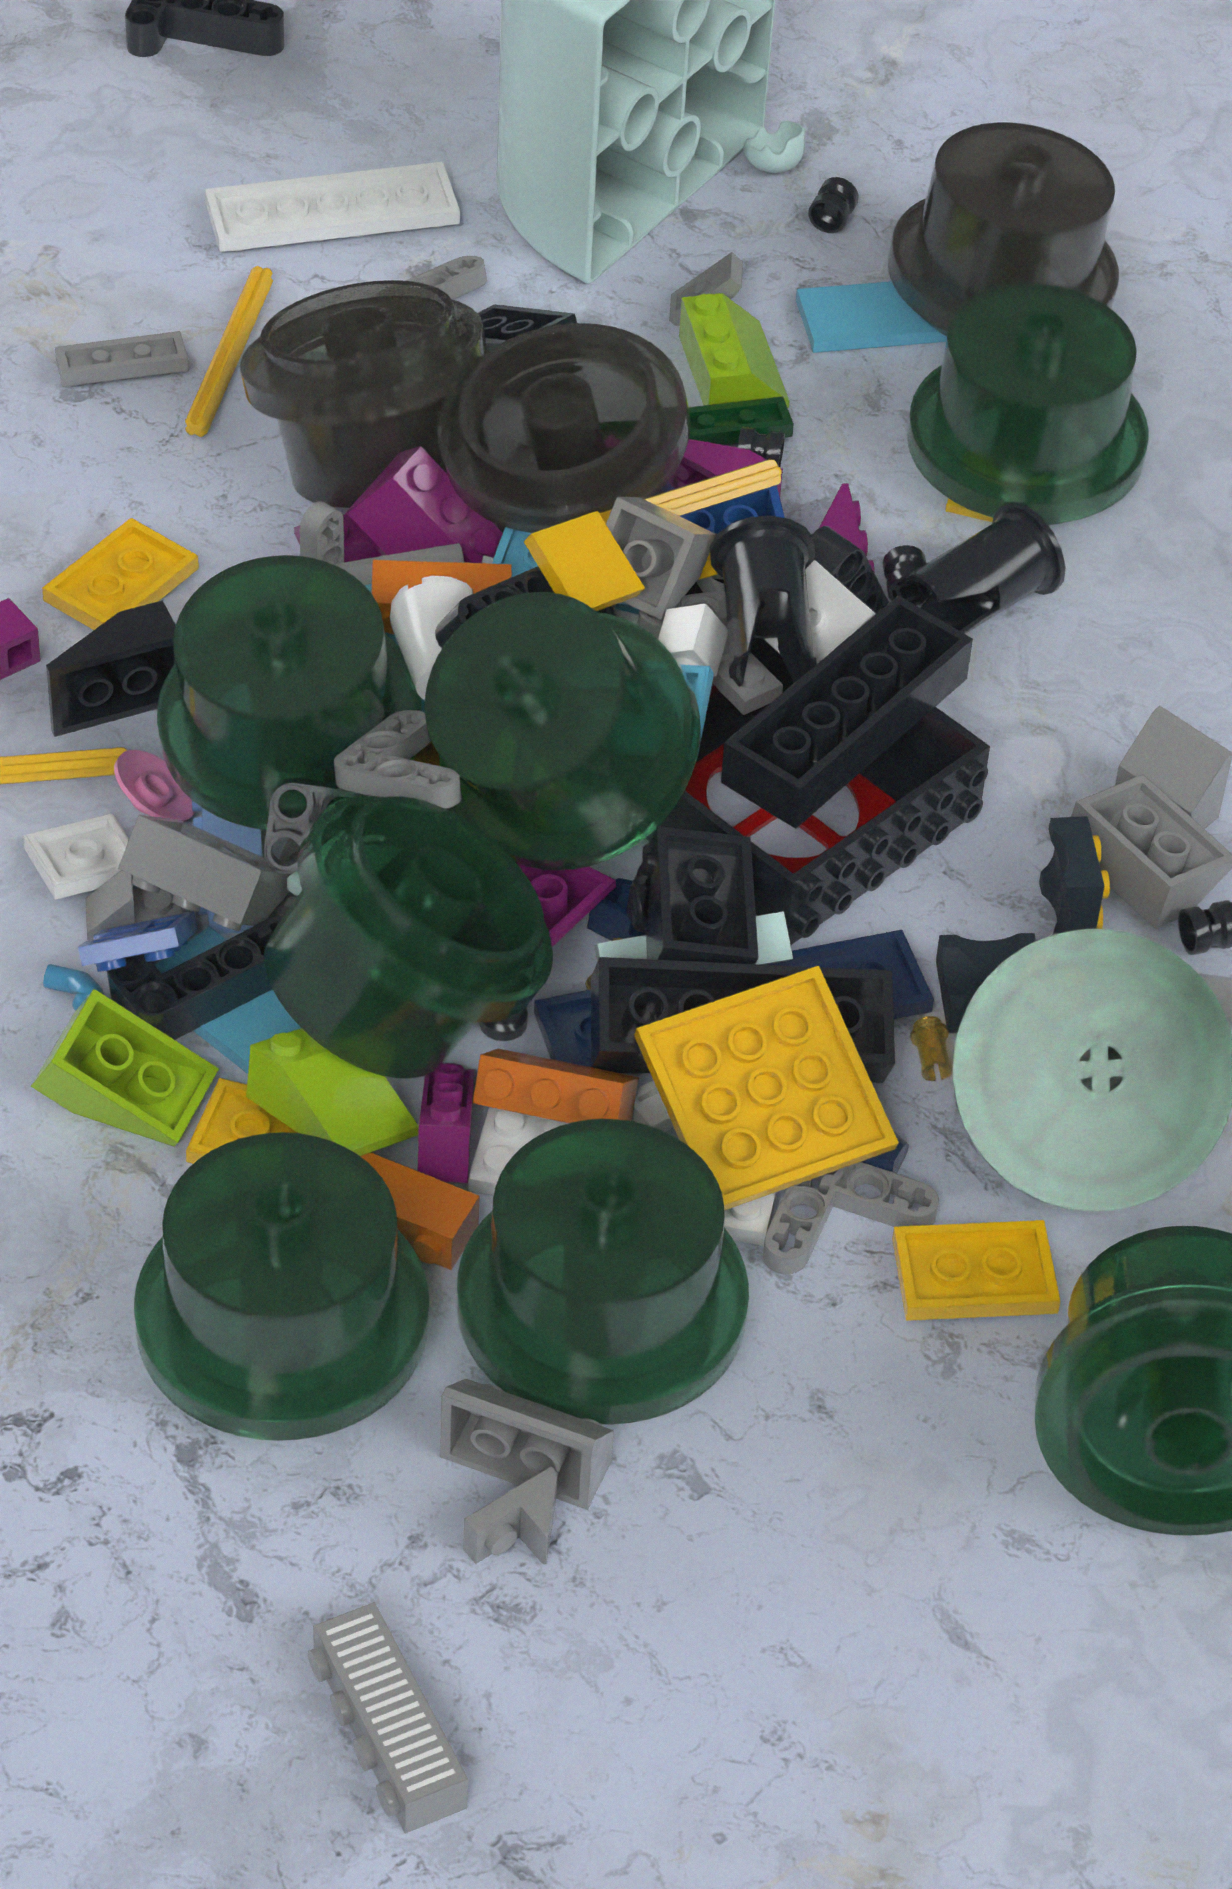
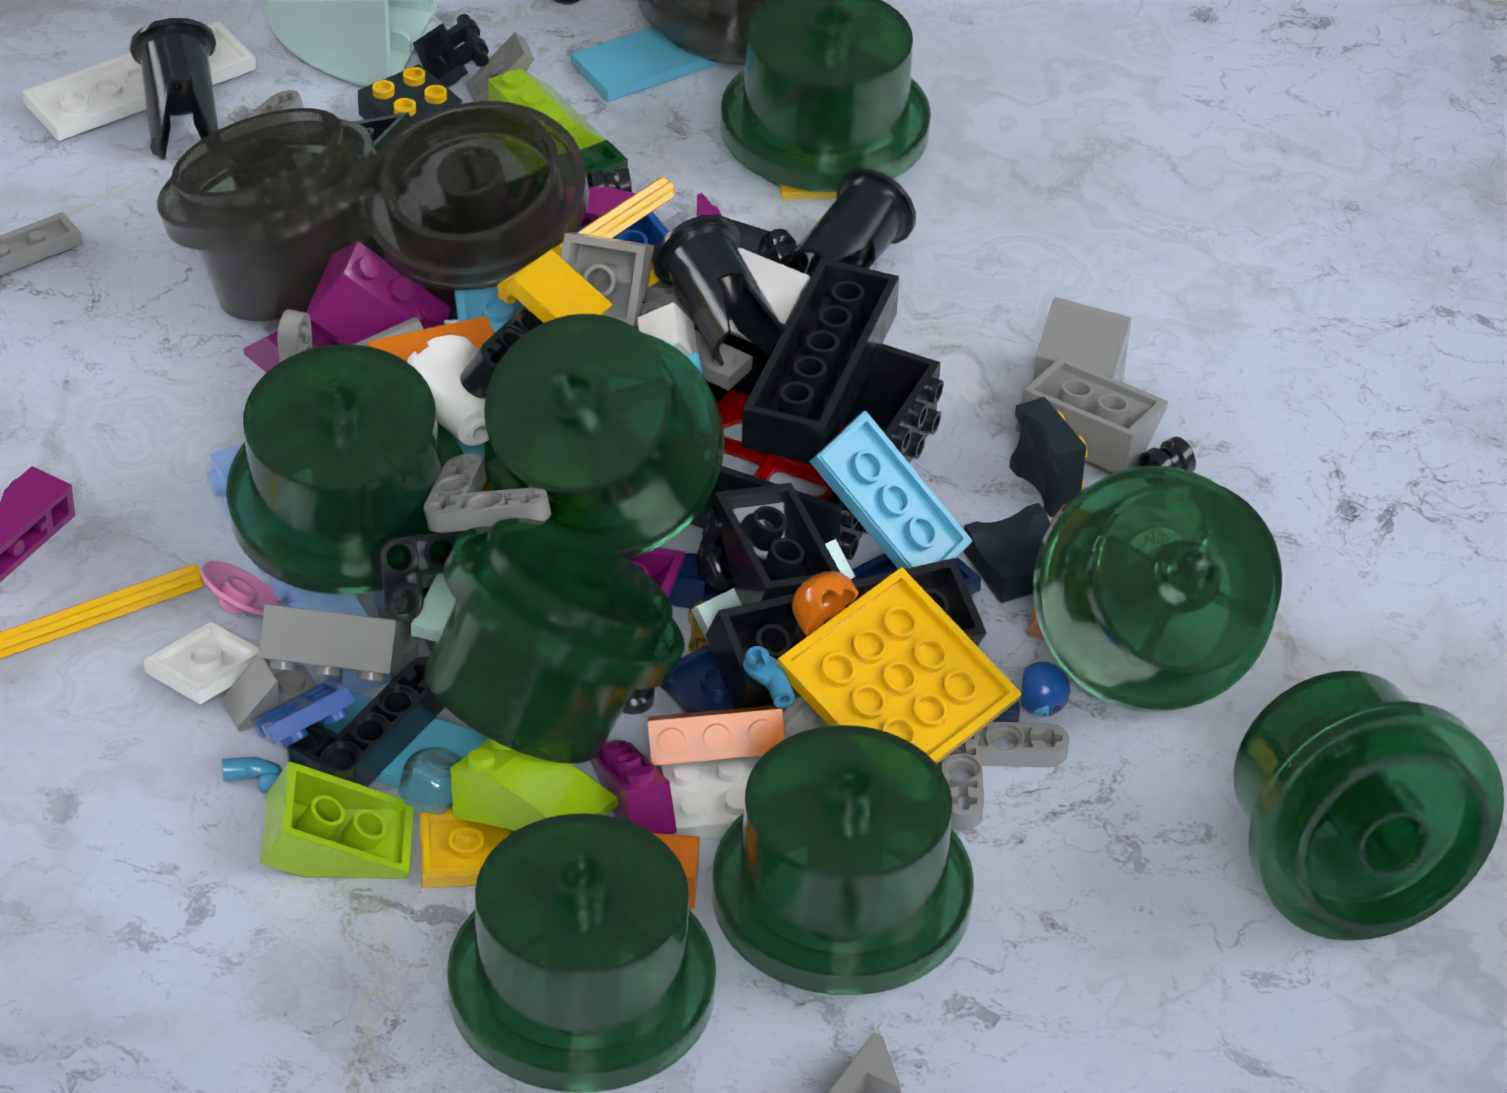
camera: 20 degrees left, 5 degrees down
(112, 670) = (164, 499): black slope -> none
(119, 574) = (115, 427): yellow plate -> none
(228, 351) = (110, 220): yellow axle -> none
(230, 1047) = (427, 779): none -> clear light blue hair
(356, 213) = (176, 76): none -> black piece
(522, 1438) = (836, 1022): light grey slope -> none
(598, 296) = (404, 92): none -> black brick
(623, 1041) = (770, 675): none -> dark azure arm
(665, 252) = (441, 55): none -> black plate
(710, 977) = (822, 599): none -> orange hair
(857, 883) = (889, 496): none -> medium azure tile
(930, 1038) = (997, 617): clear yellow pin -> none
(938, 1143) = (1044, 689): none -> blue piece
(975, 1270) = (1123, 779): yellow plate -> none

